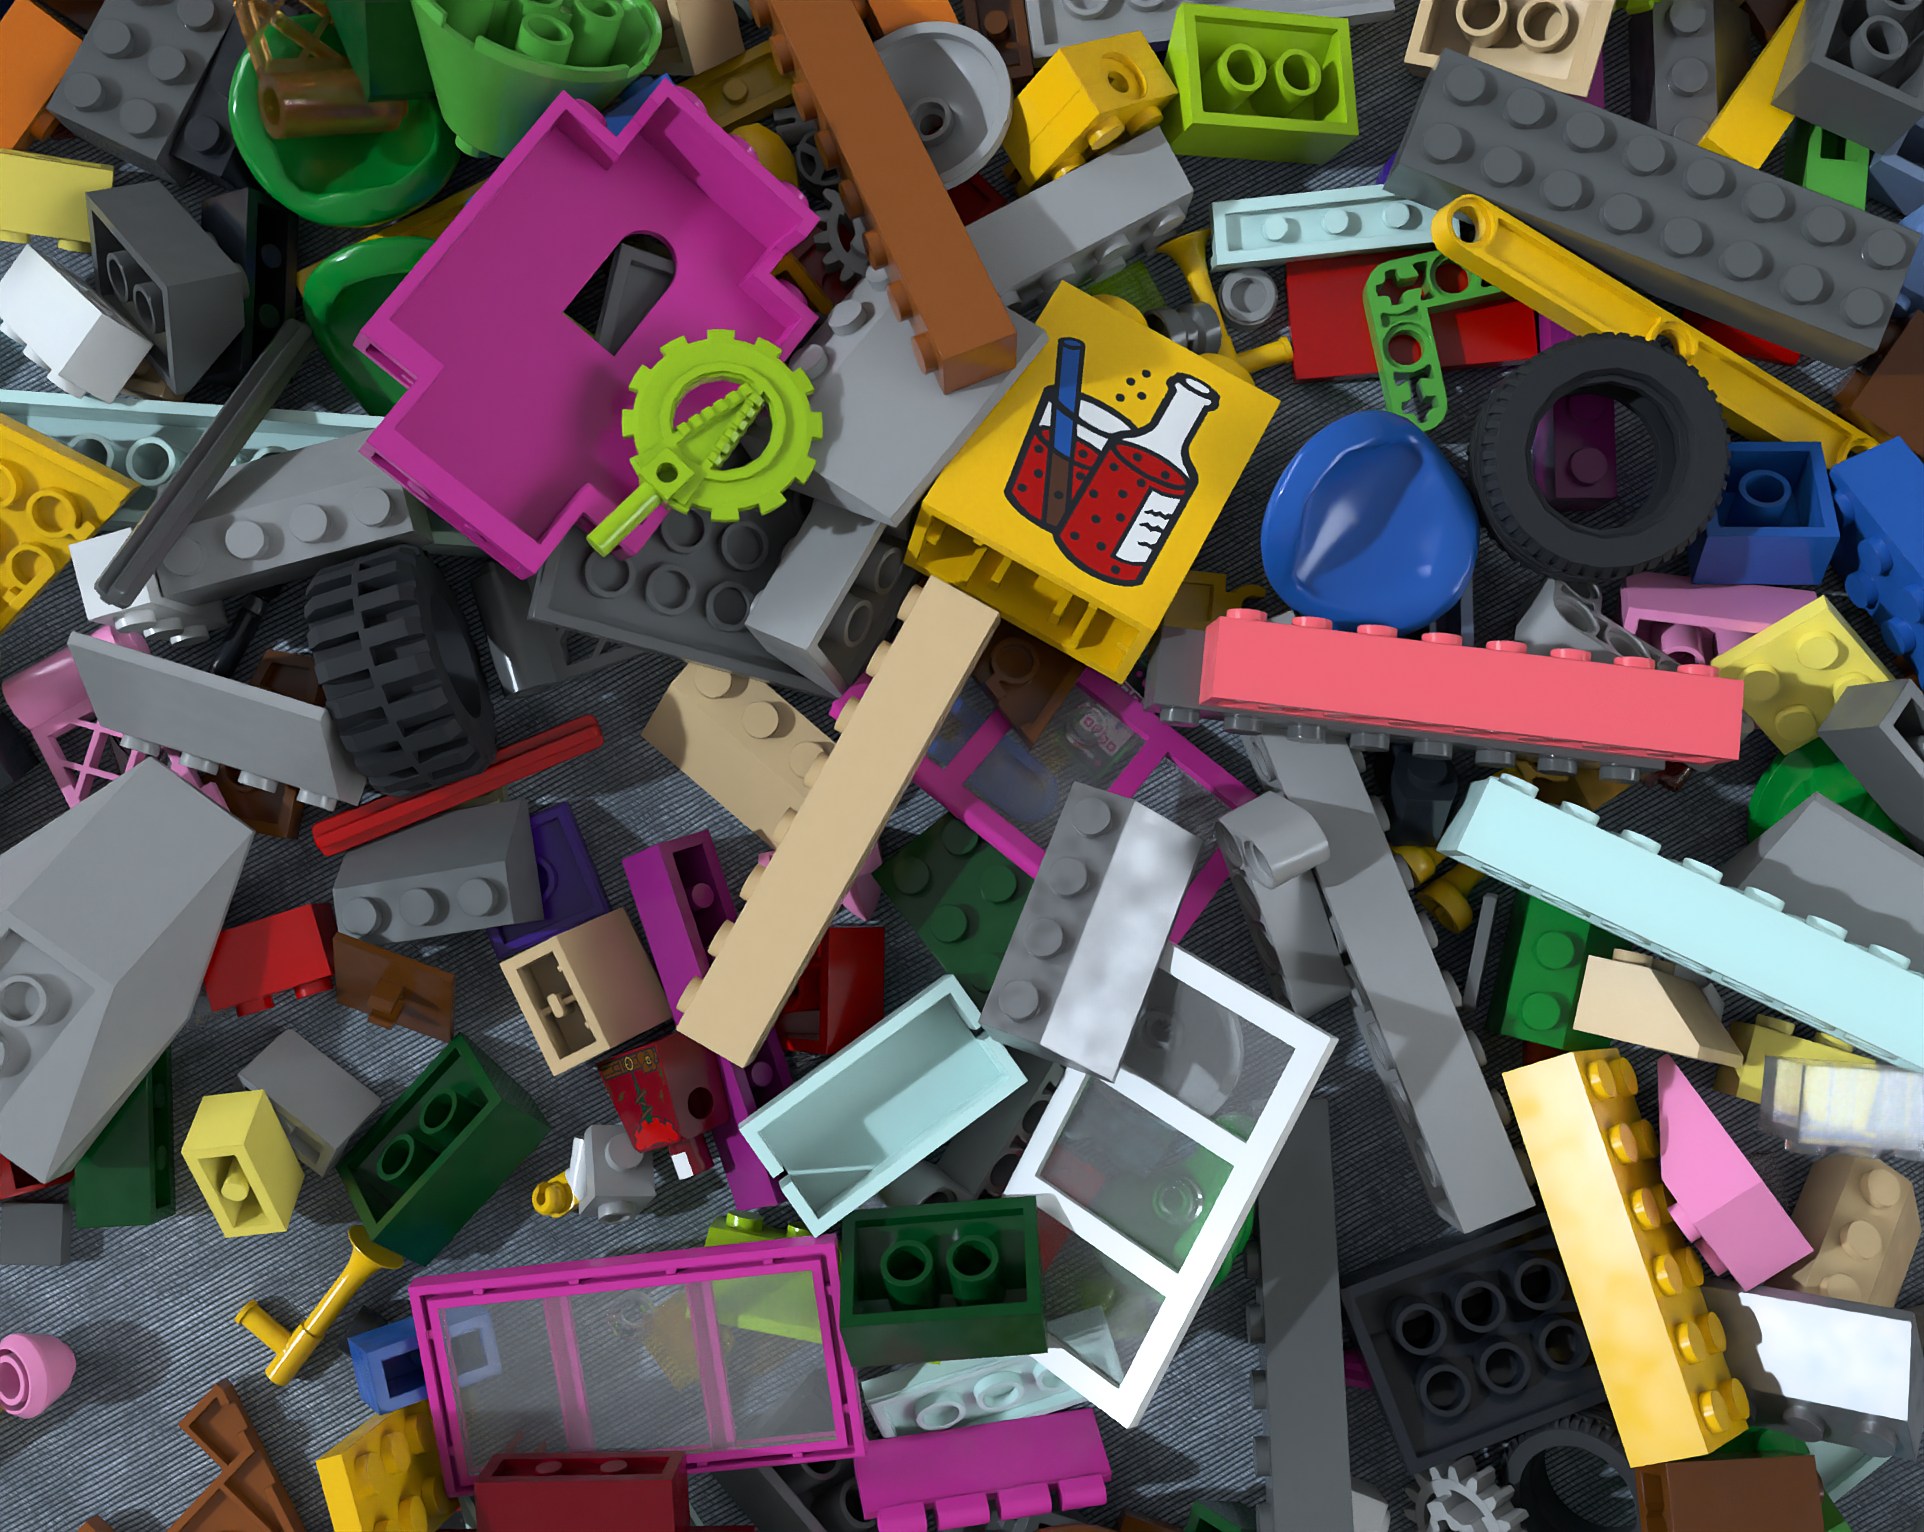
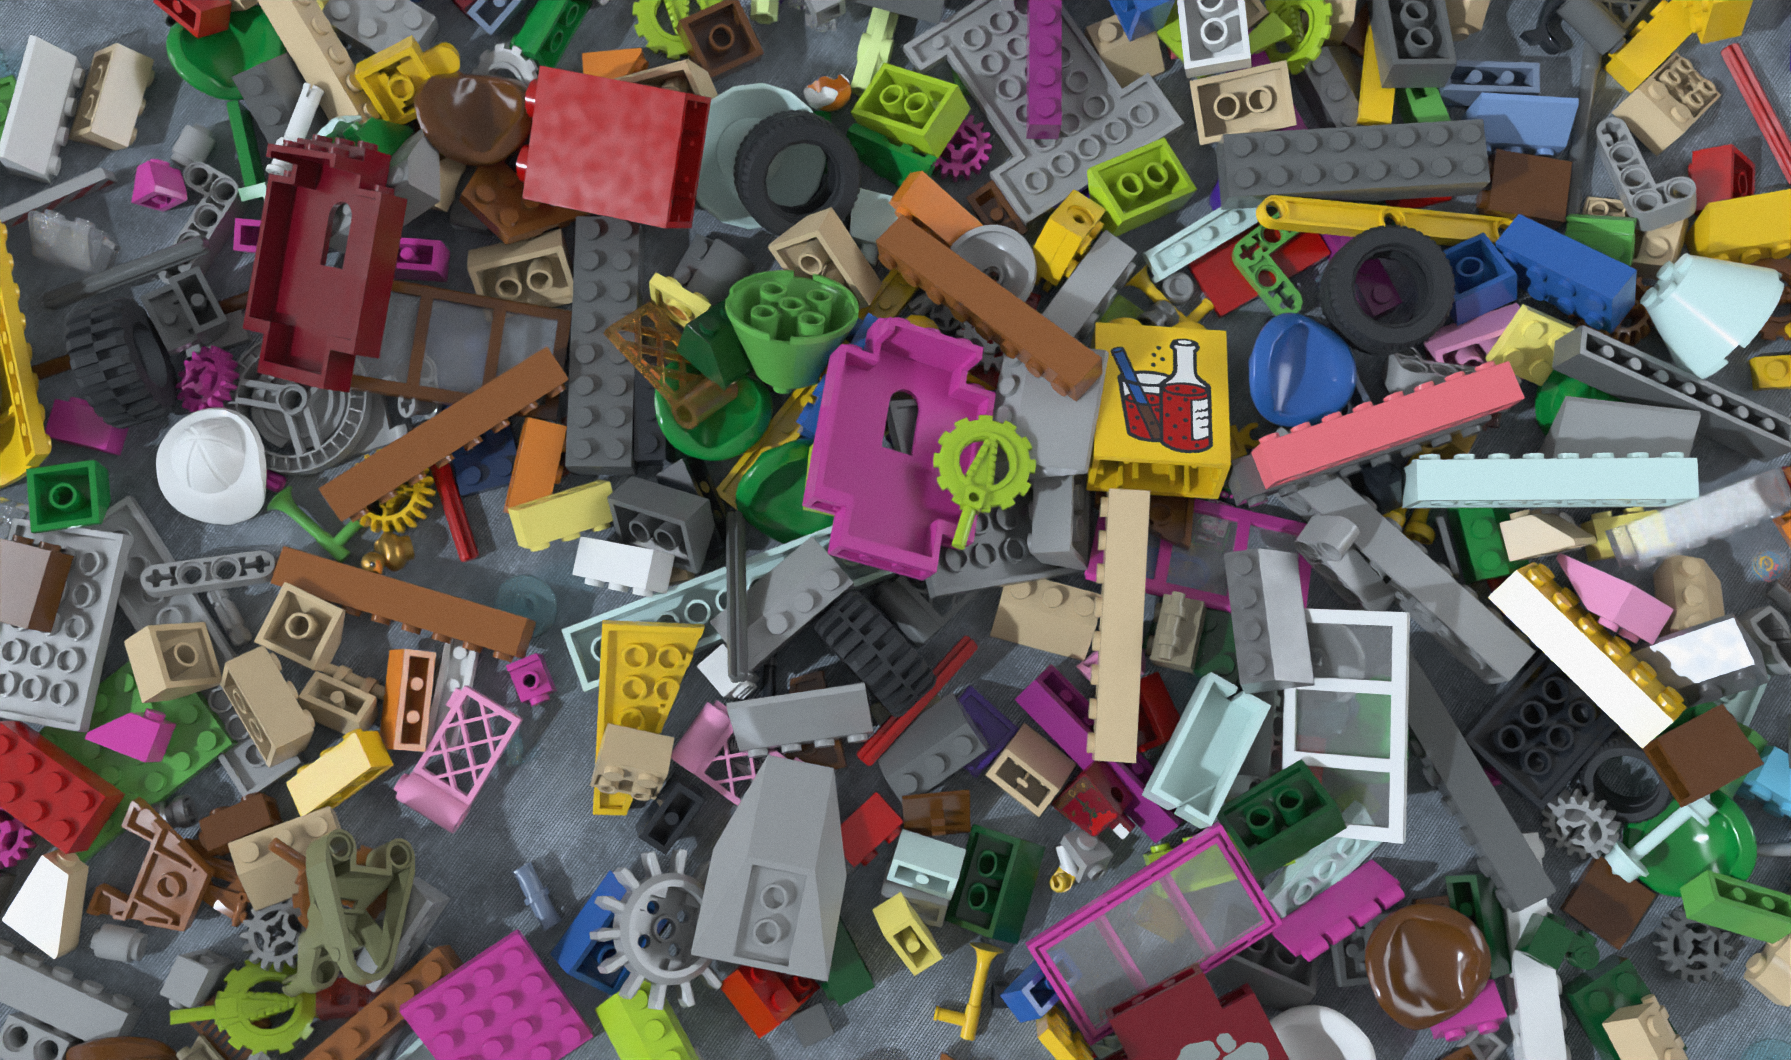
camera: 25 degrees left, 5 degrees down
(338, 1062) = (926, 864): none -> light aqua brick
(933, 879) = (1177, 632): none -> dark tan brick

